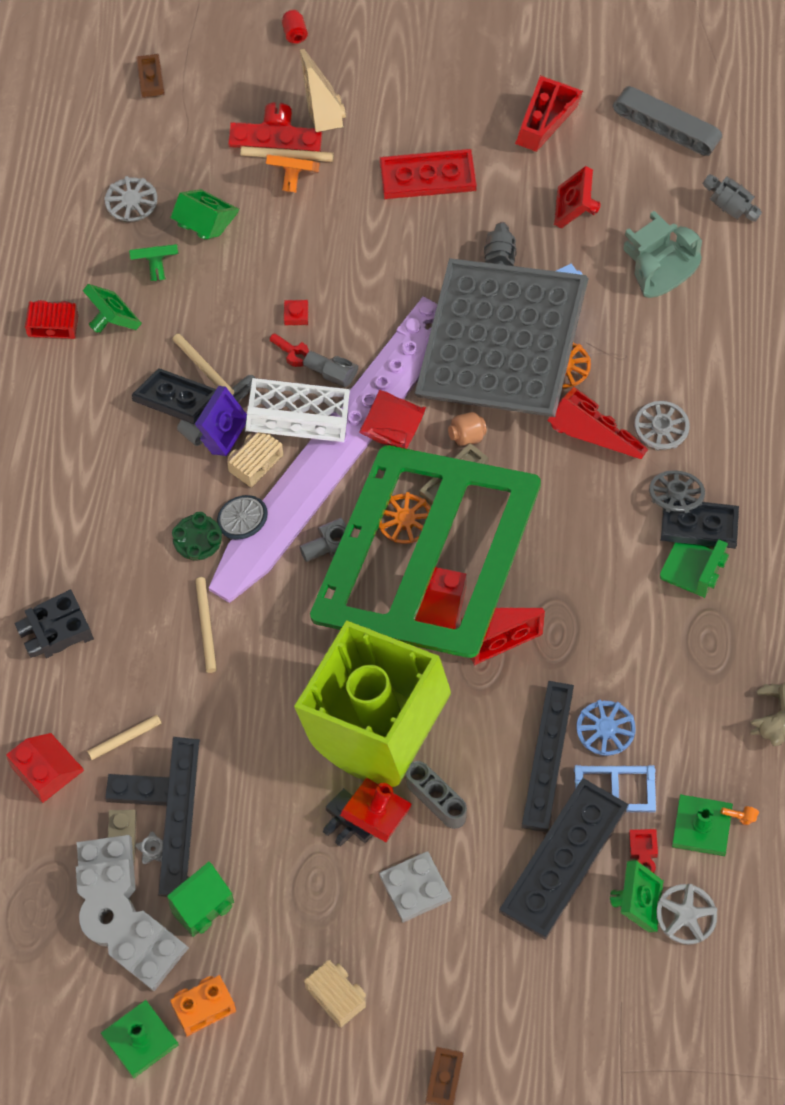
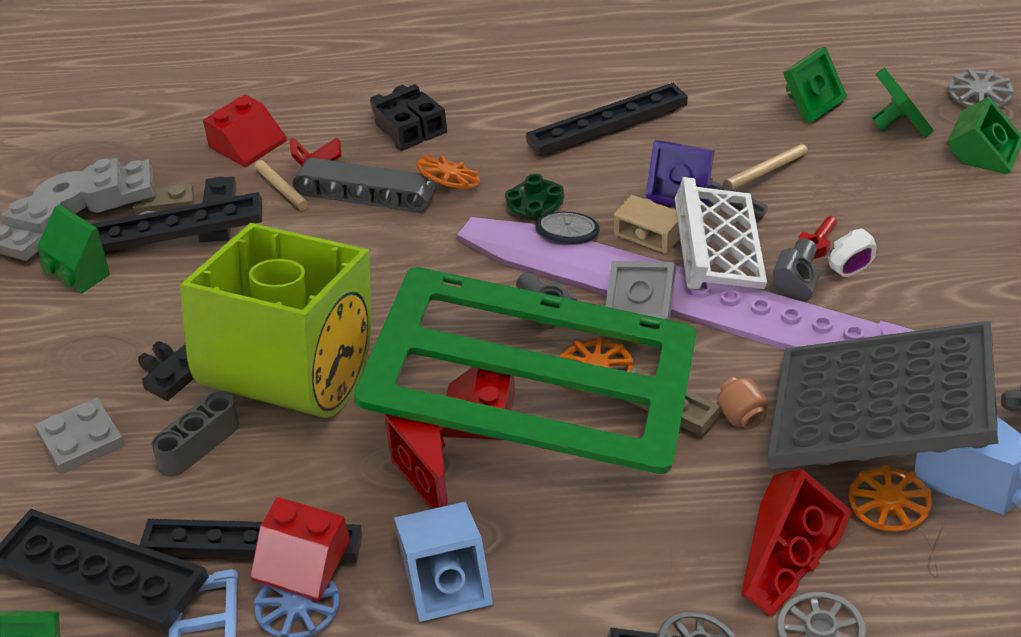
camera: 85 degrees right, 20 degrees down
(51, 319) = (784, 51): red brick -> none
(96, 699) = (329, 151): none -> red bracket
(102, 470) = (606, 119): none -> black plate
(149, 666) = (364, 185): none -> dark grey beam
(152, 597) = (448, 172): none -> orange wheel
(174, 395) = (727, 142): black tile -> none
(205, 625) = (423, 222): tan bar -> none
(295, 312) = (880, 231): red plate -> none
(320, 329) = (852, 253): none -> white rock
(341, 473) = (642, 287): none -> light grey plate
(376, 809) = (168, 380): red tile -> none
(392, 420) = (734, 328): red slope -> none
(576, 714) = (299, 548): none -> slope
(585, 629) = (444, 561): none -> light blue slope

